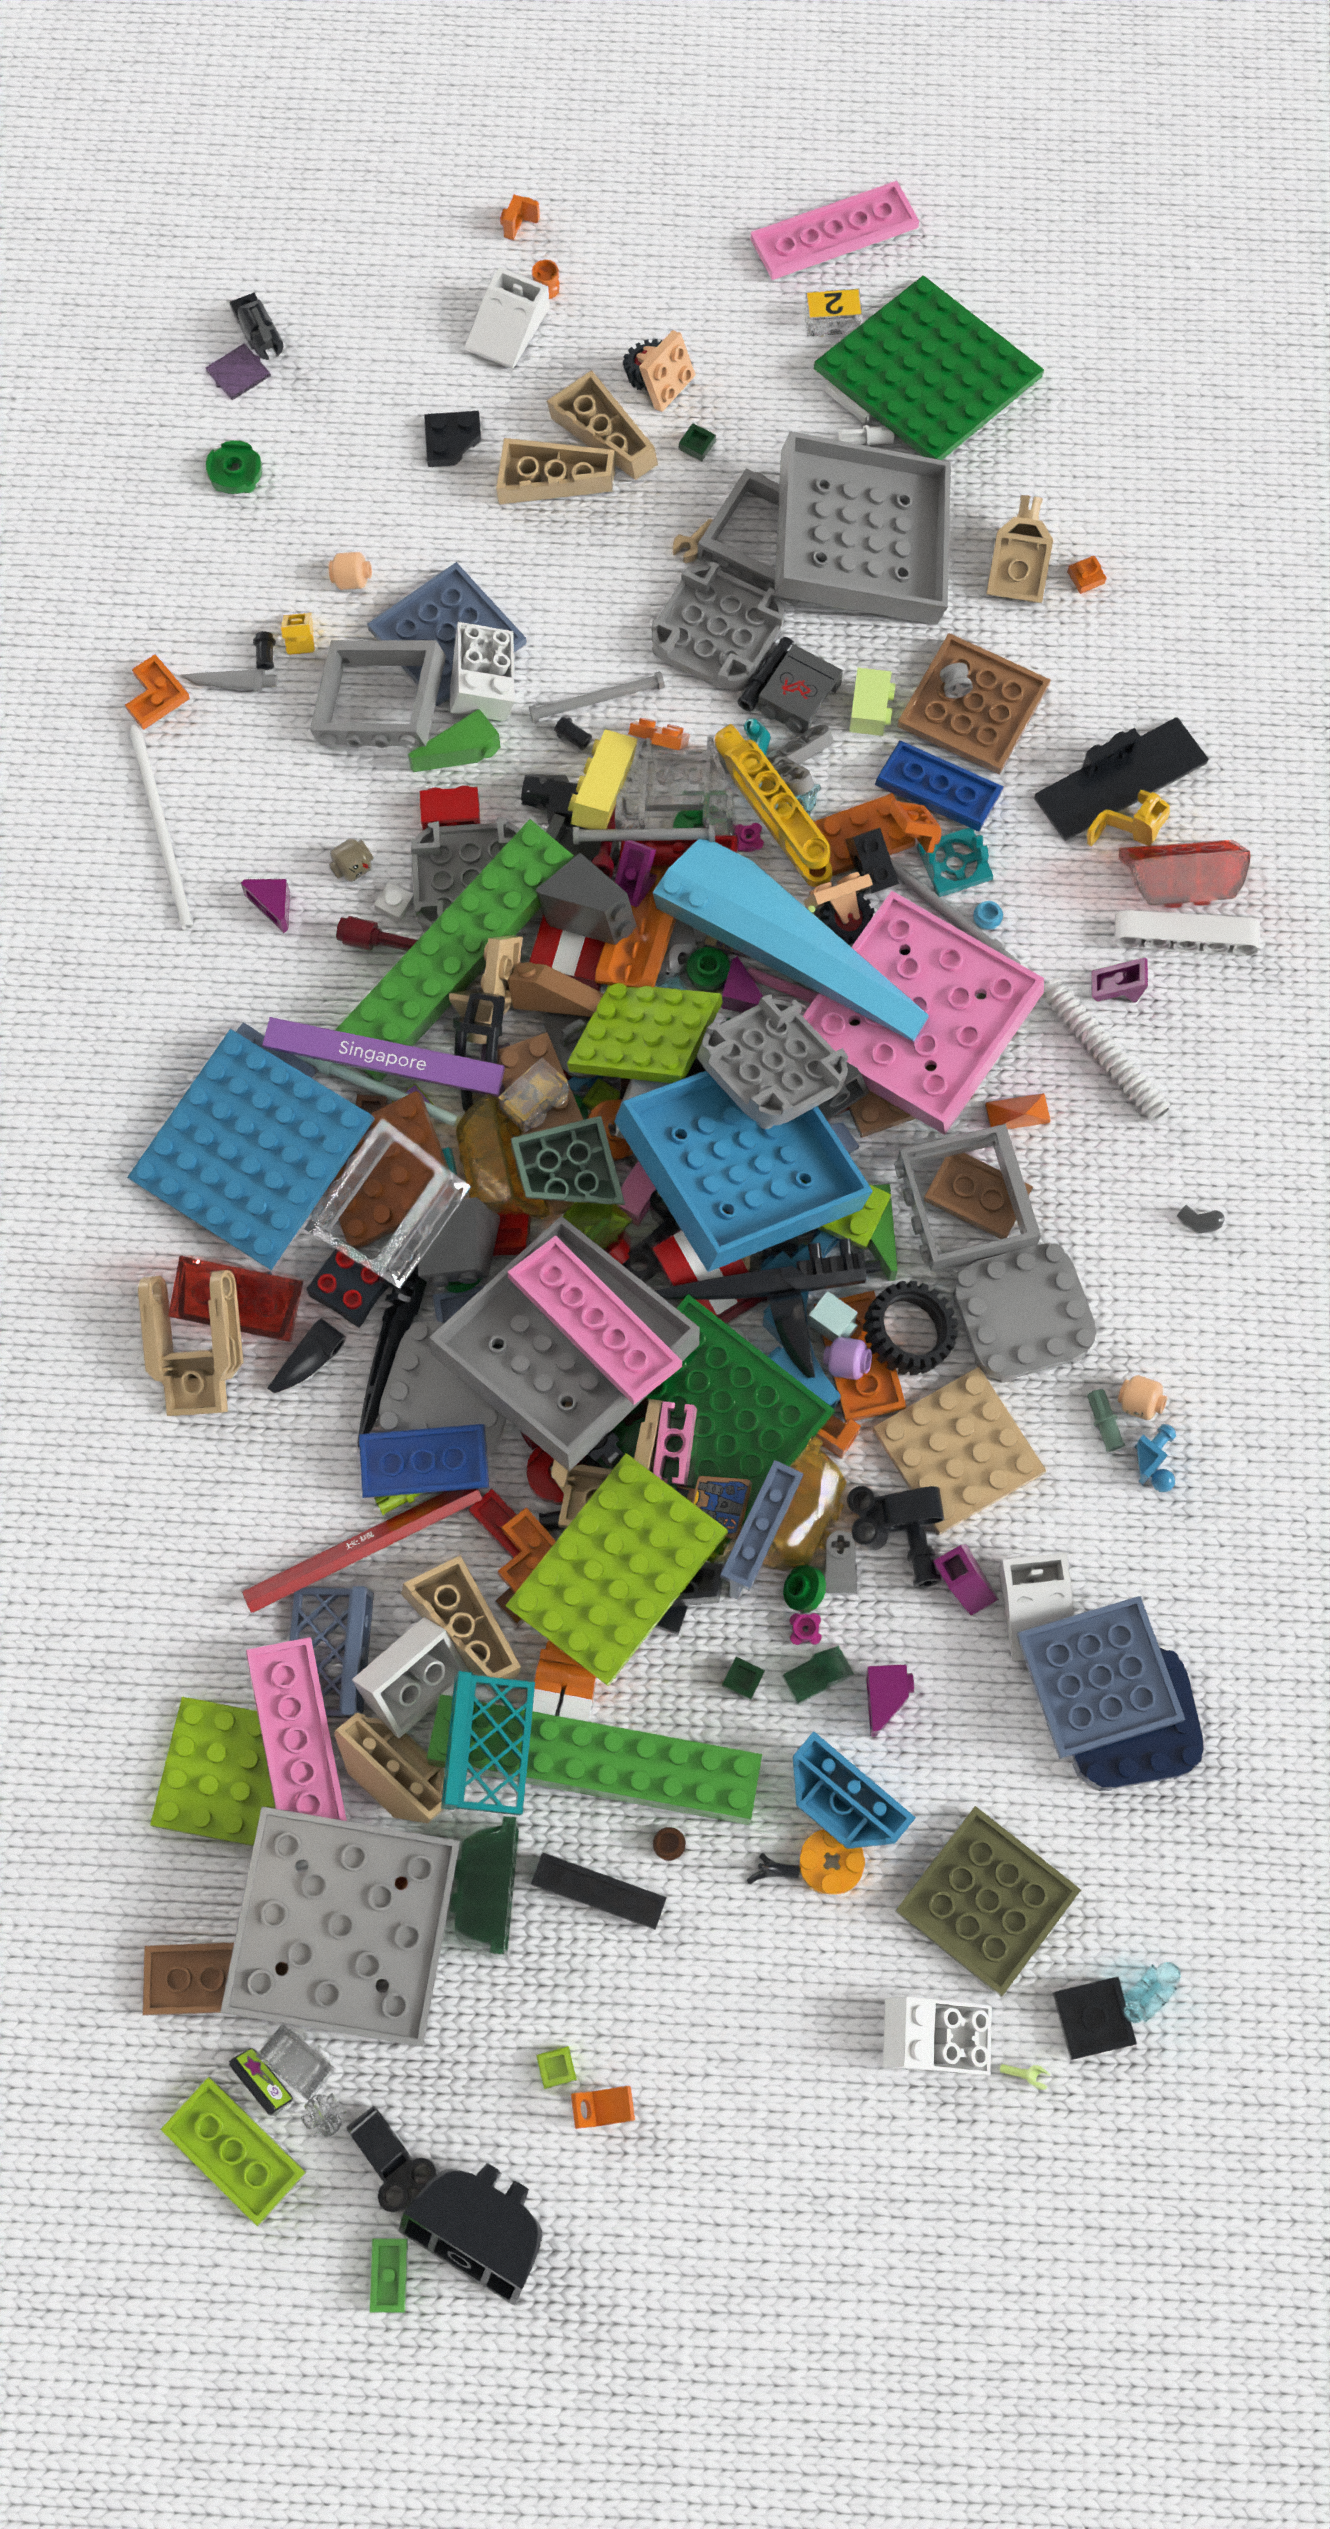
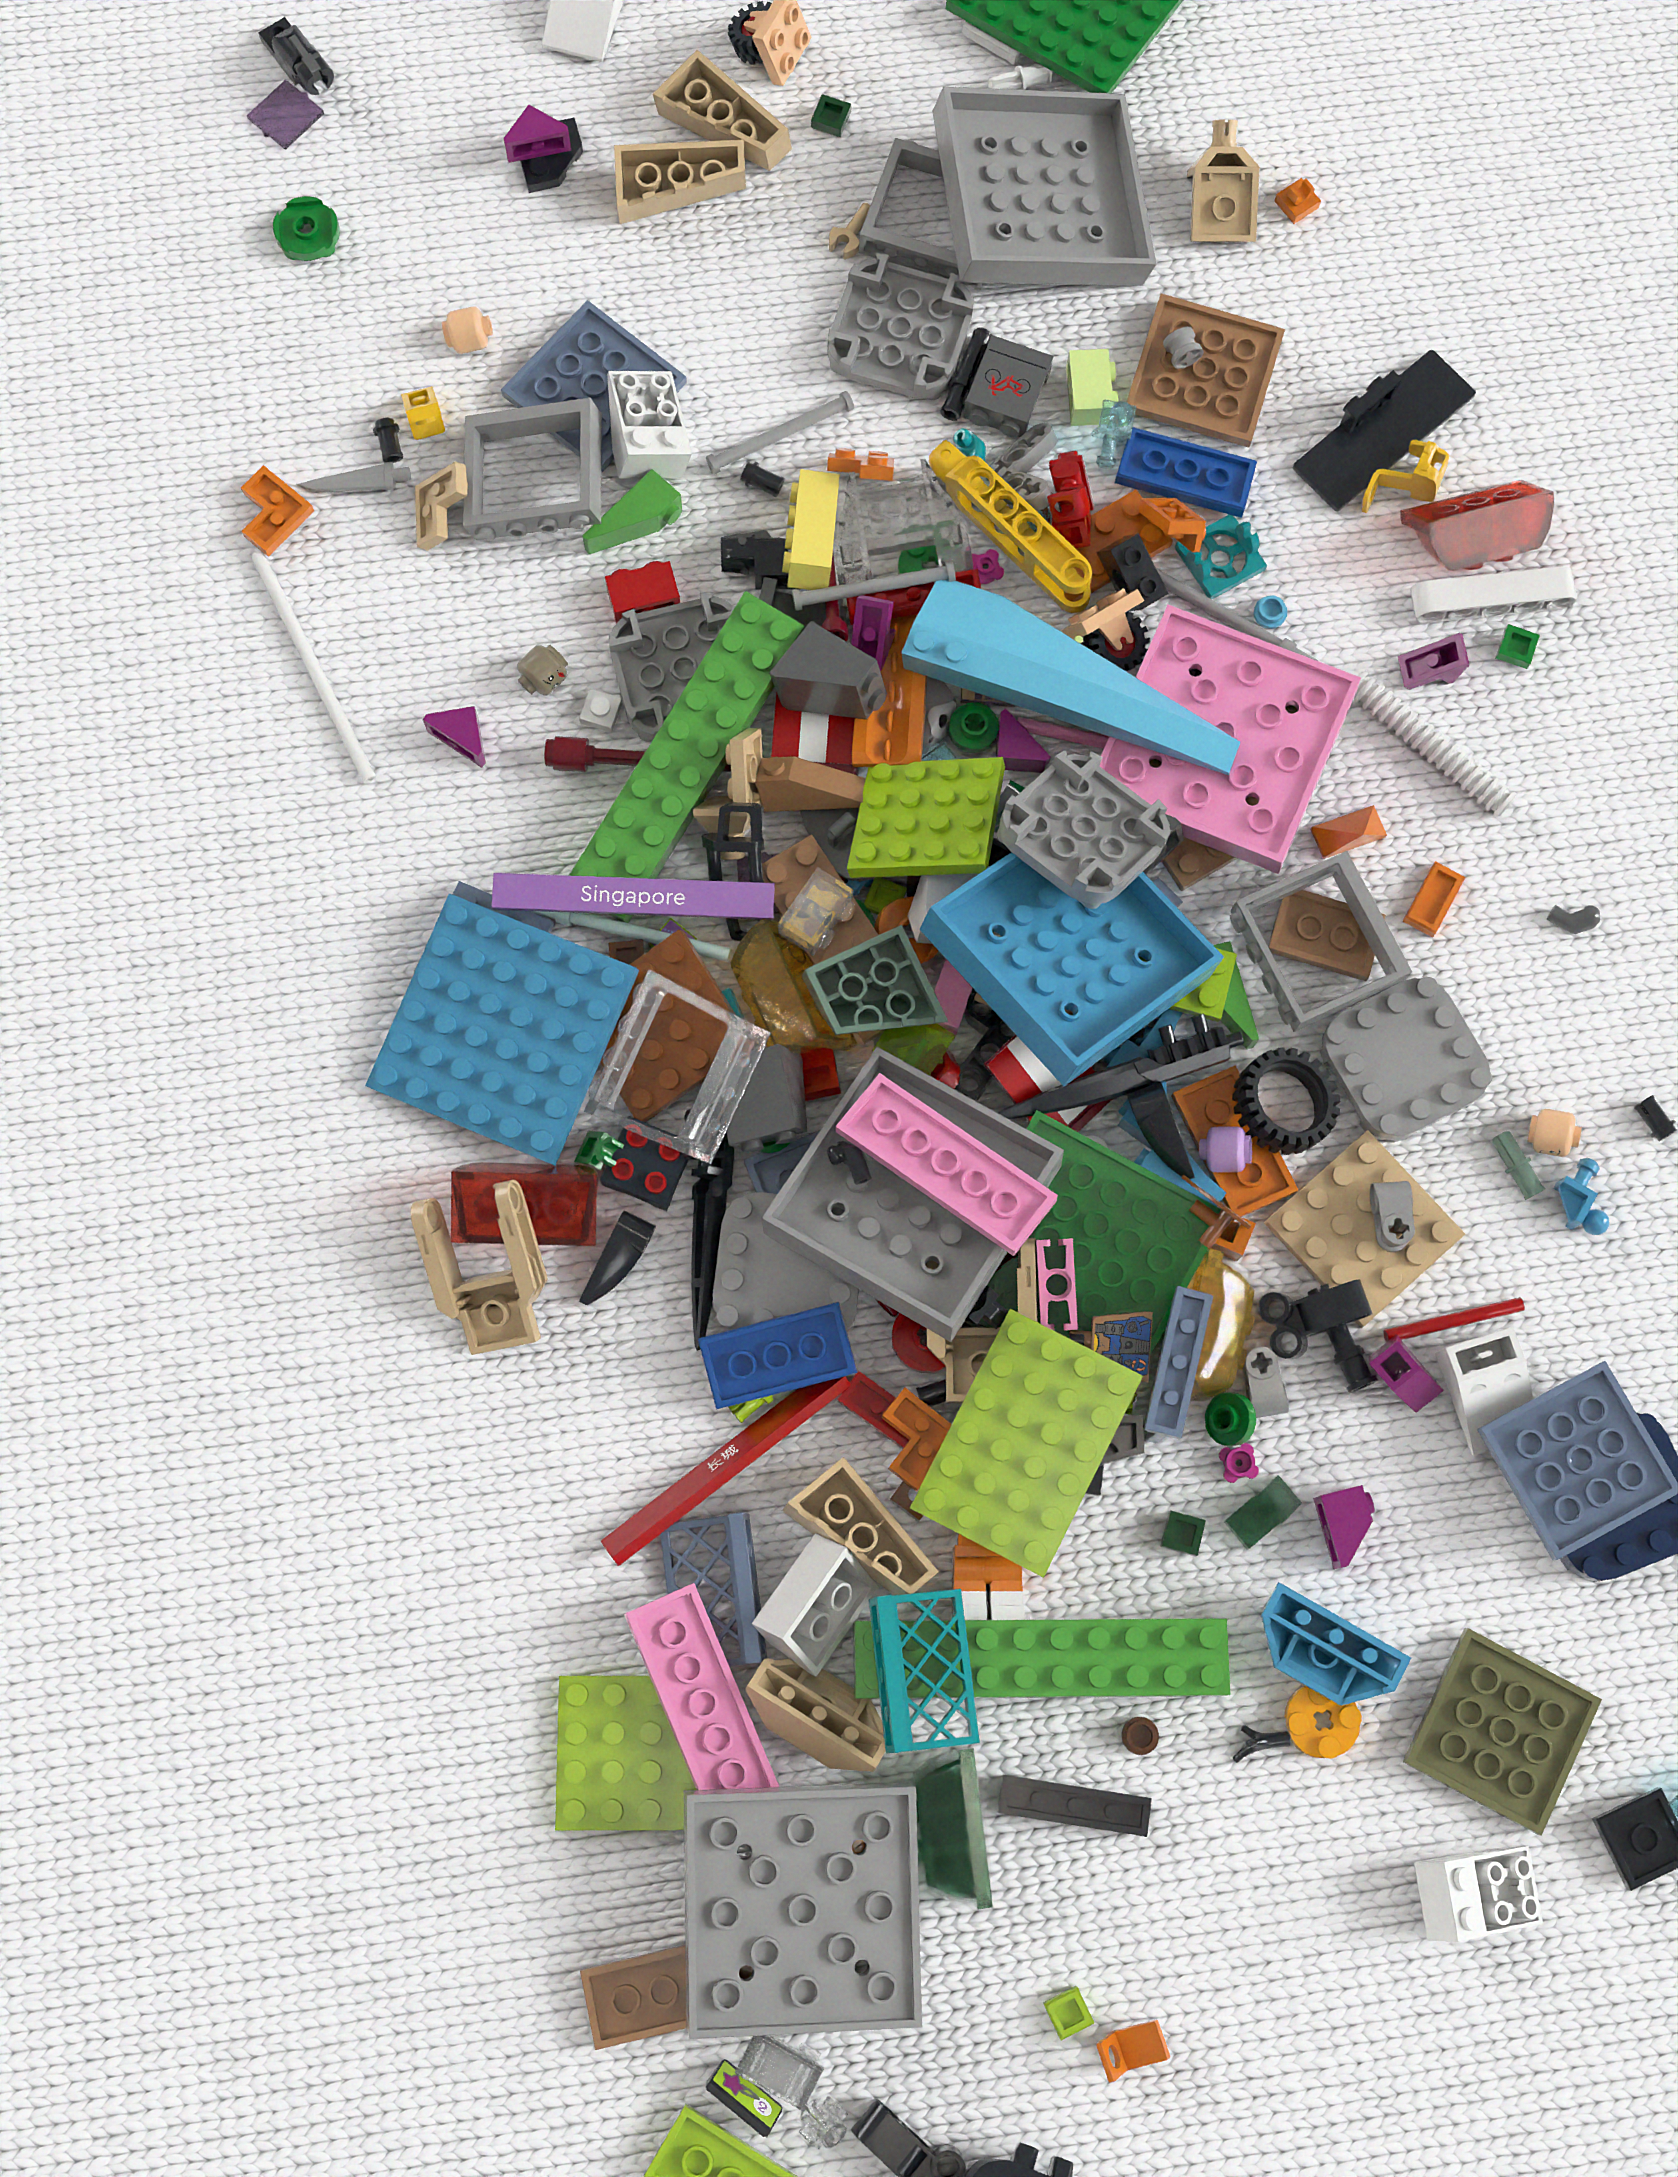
camera: 15 degrees left, 5 degrees up
(288, 707) = (433, 499): none -> tan plate
(310, 1264) = (597, 1150): none -> green plate
(440, 420) = (535, 136): none -> magenta slope
(518, 1303) = (852, 1157): none -> black arm
(822, 1415) = (1216, 1222): none -> dark orange shield
(833, 1318) = (1201, 1107): light aqua brick -> none
(834, 790) = (1073, 498): none -> red hips
(882, 737) = (1114, 426): none -> clear light blue piece
(982, 1435) = (1392, 1207): none -> light grey piece
(1024, 1542) = (1455, 1319): none -> red bar
(1028, 2074) = (1581, 1915): yellowish green hand -> none
(1080, 1182) = (1433, 899): none -> orange tile
(1199, 980) = (1517, 646): none -> green plate
(1236, 1402) = (1655, 1118): none -> black pin

